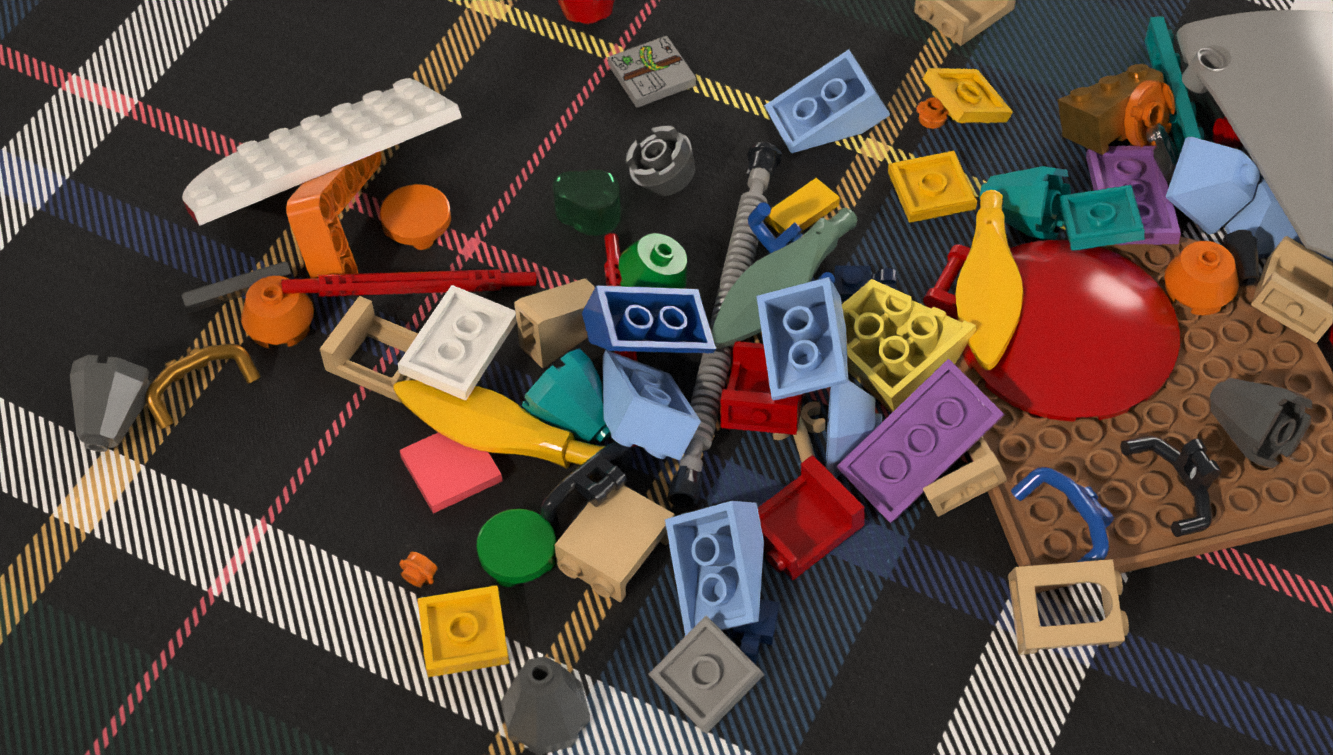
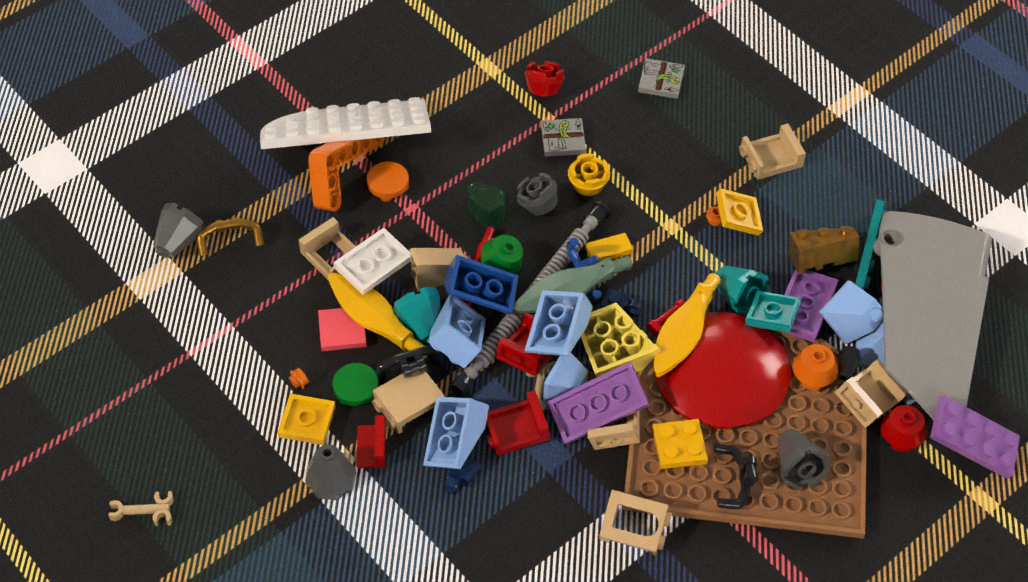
camera: 20 degrees right, 0 degrees up
(230, 288) = (272, 190): dark grey tile -> none
(275, 316) = (287, 211): orange cone -> none
(407, 282) = (364, 218): red axle -> none
(589, 633) = (371, 444): none -> red panel
(706, 674) = (422, 487): light grey tile -> none
(723, 110) = (588, 174): none -> yellow cone
(827, 105) = (654, 191): light blue slope -> none
(932, 186) = (690, 259): yellow plate -> none
(1072, 451) = (679, 444): none -> yellow plate
(1082, 498) = (673, 470): blue piece -> none
(1148, 106) = (834, 252): orange tile -> none
(1165, 152) = (836, 280): clear smoke tile -> none

